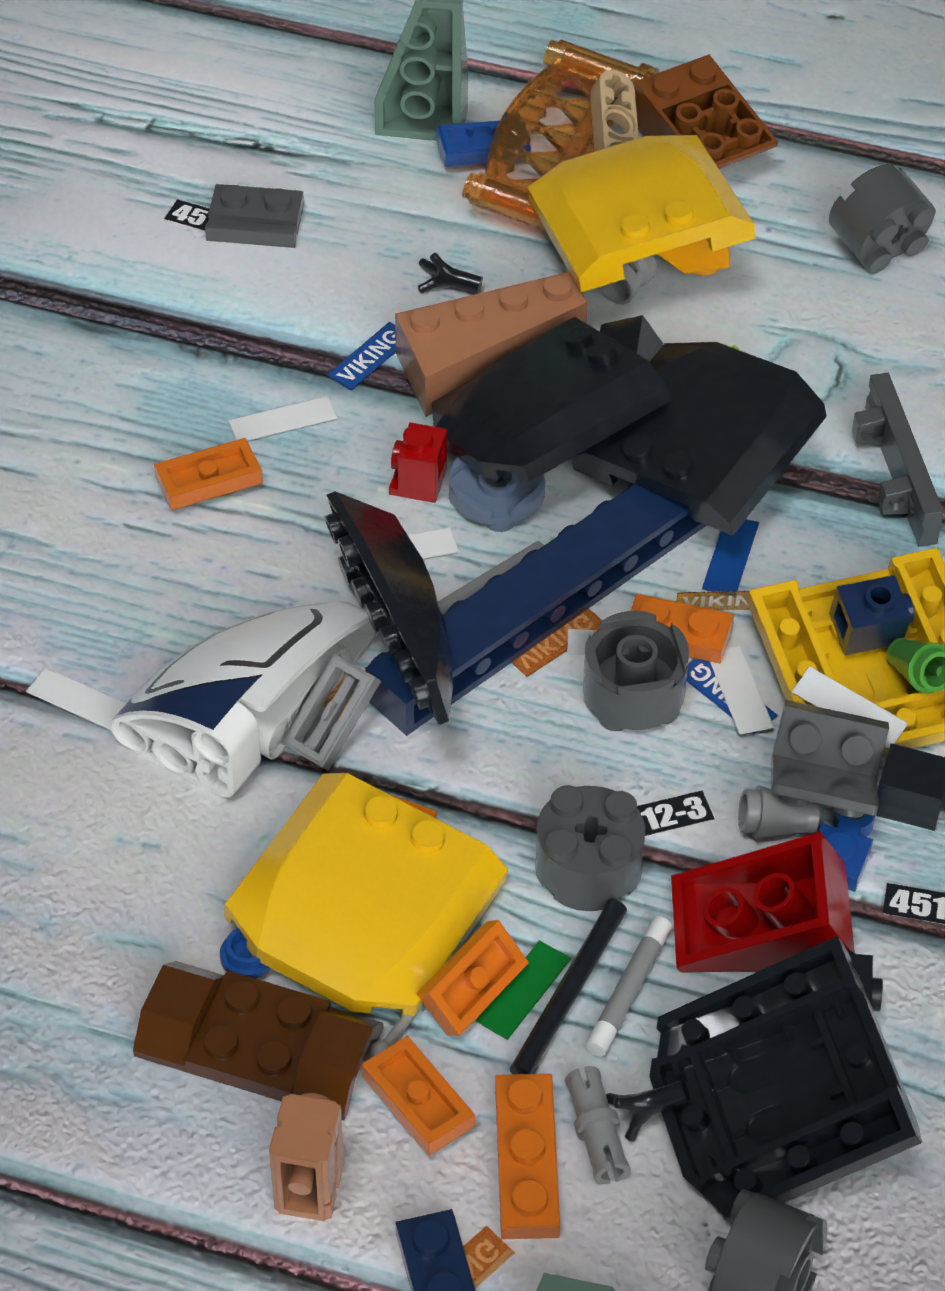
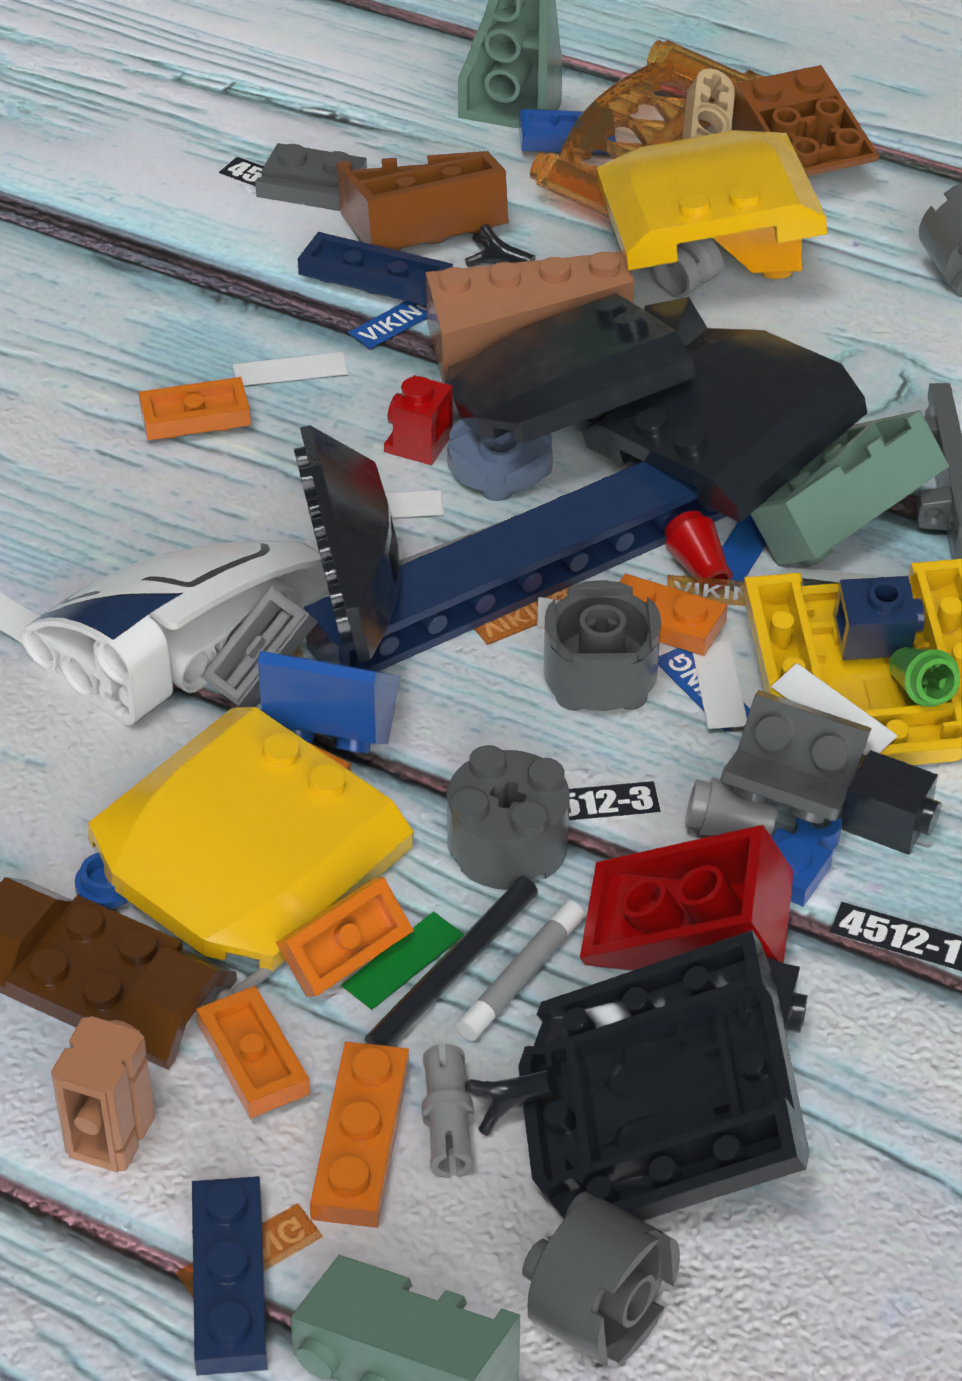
camera: 10 degrees right, 5 degrees down
(336, 308) = (368, 267): none -> dark blue plate
(370, 234) = (425, 201): none -> dark orange wedge
(408, 755) = (328, 699): none -> blue slope
(696, 561) = (697, 546): none -> red cone
(822, 488) = (848, 487): none -> sand green wedge
(822, 574) = (825, 575): none -> white sticker

